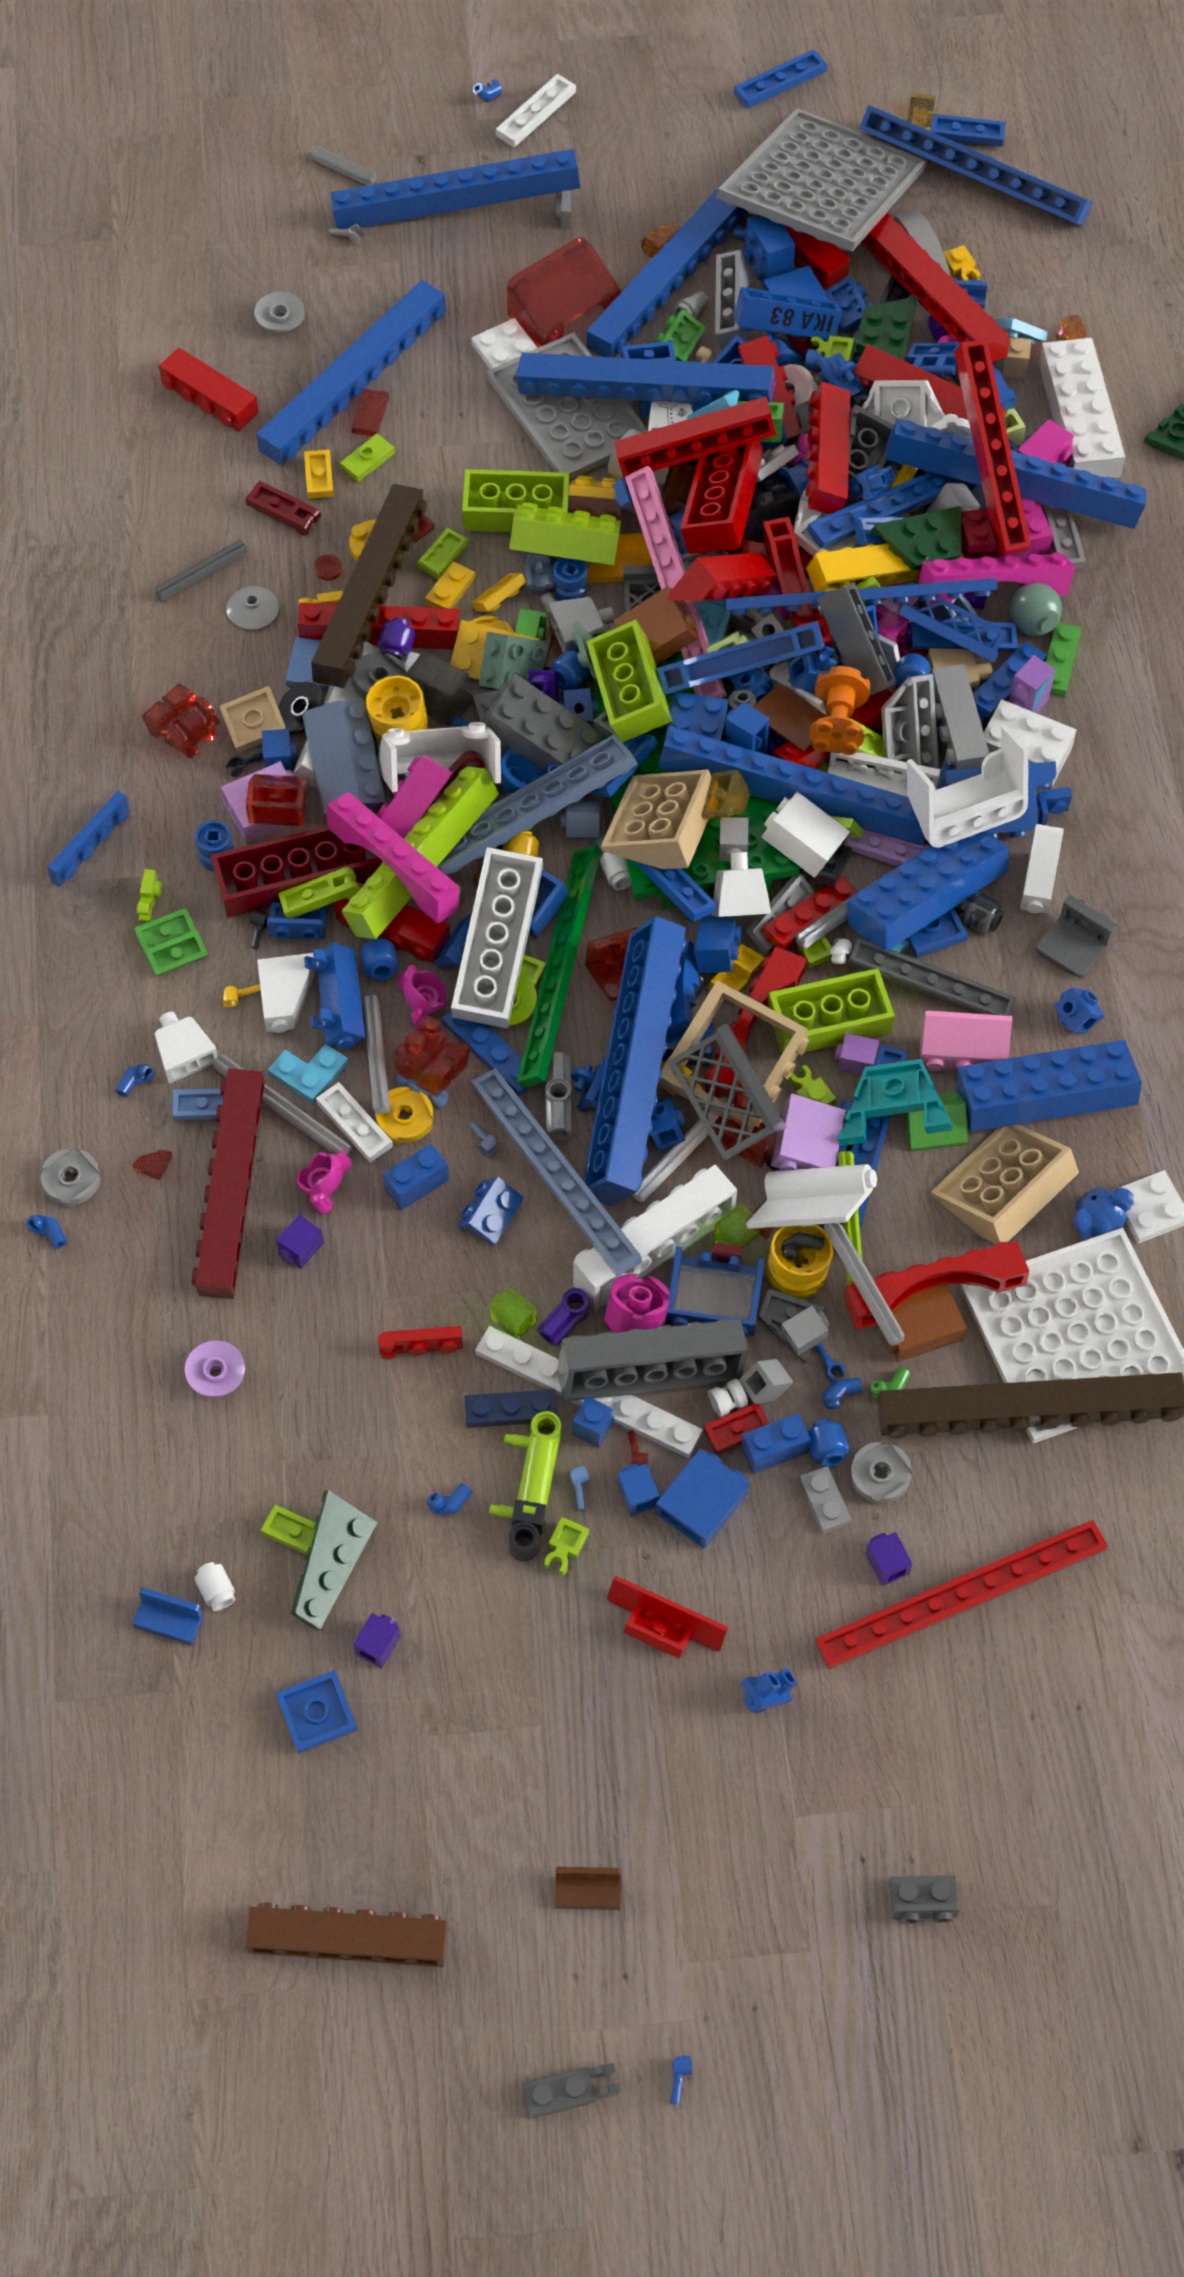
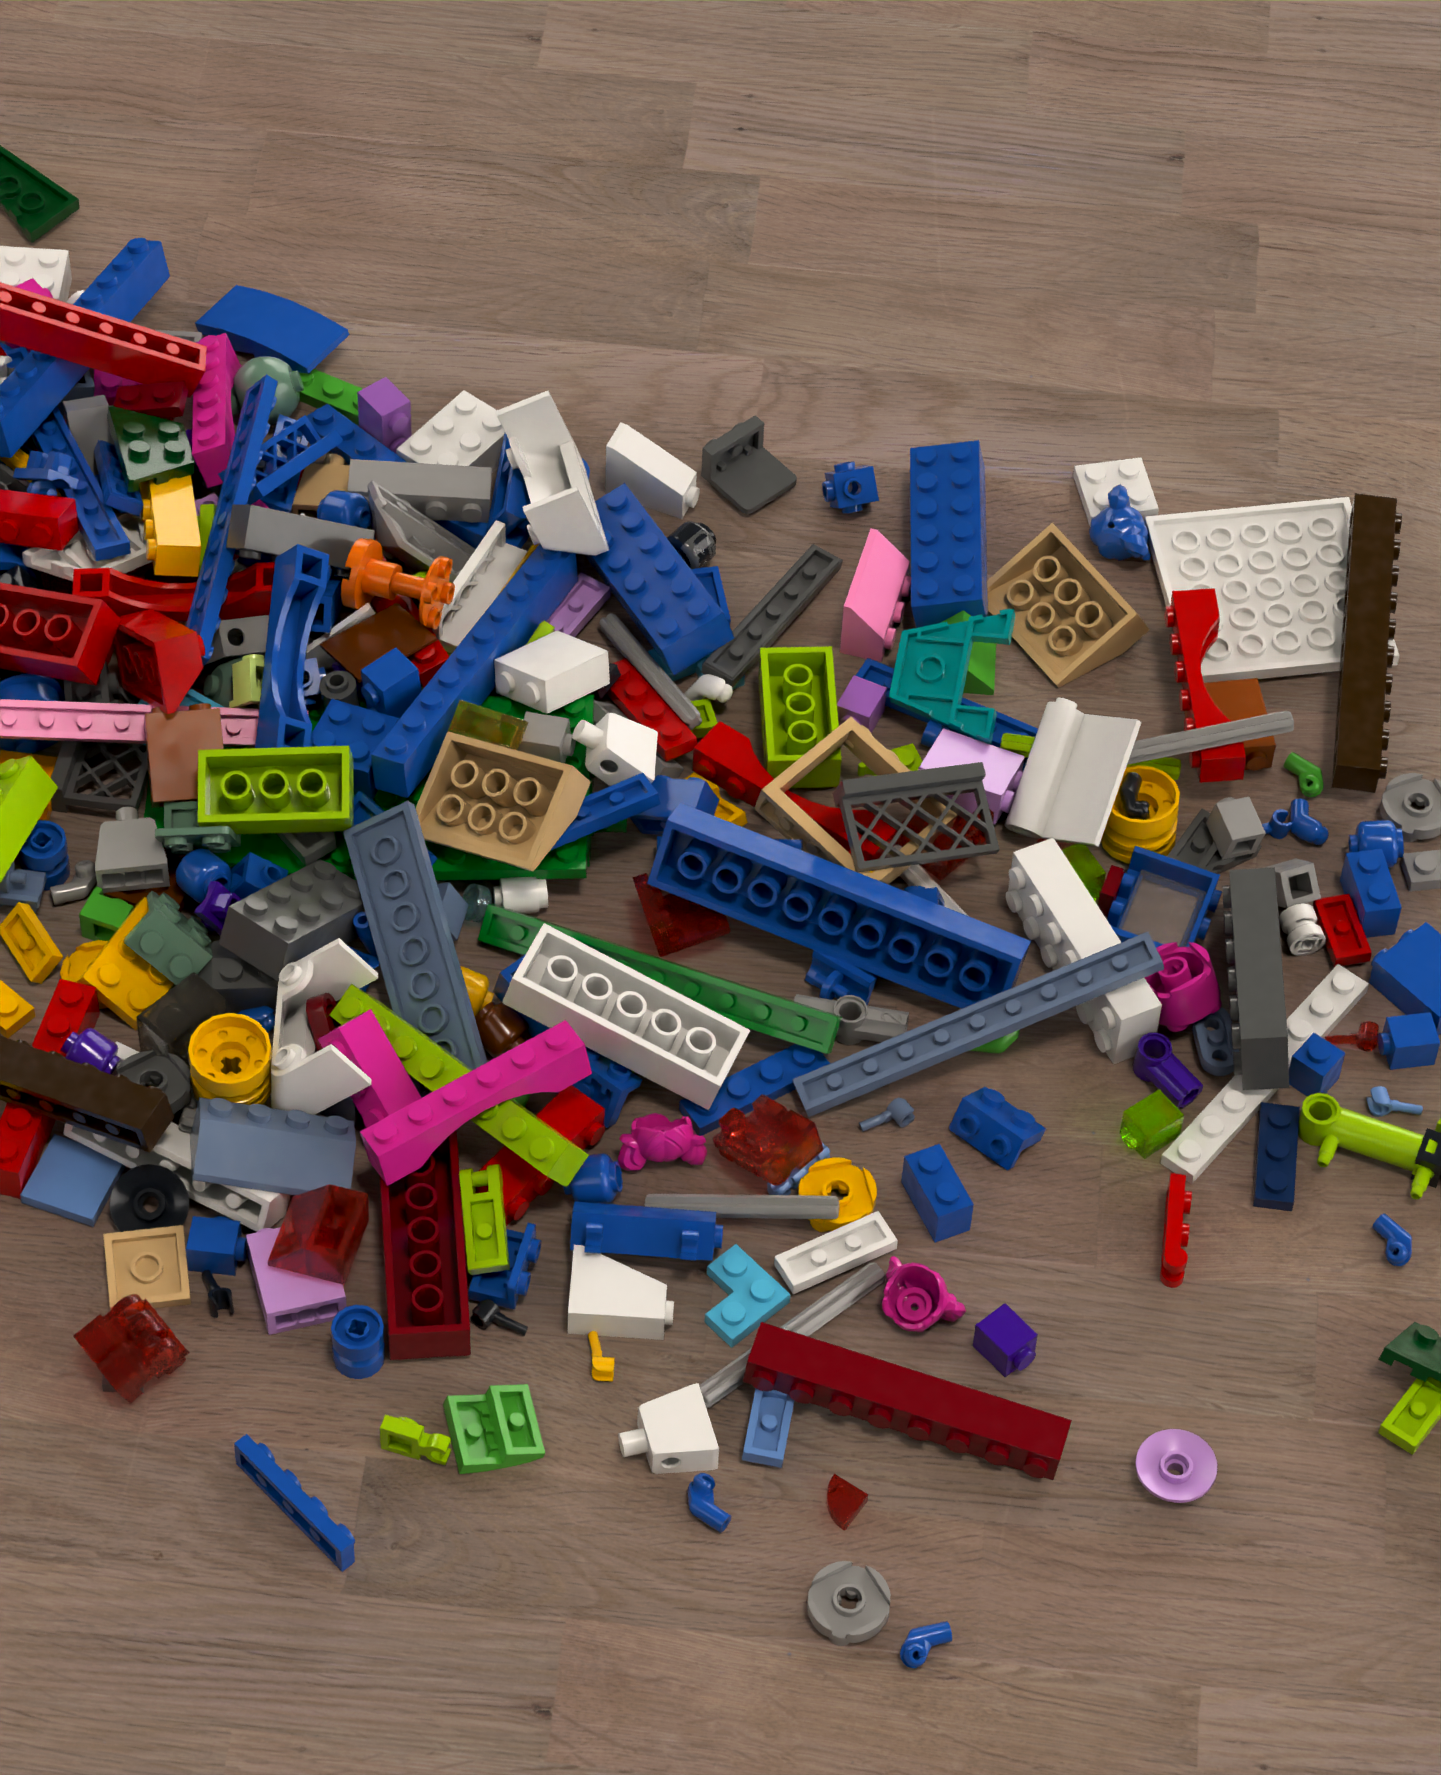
camera: 80 degrees left, 10 degrees down
(1105, 603) = (273, 327): none -> blue slope

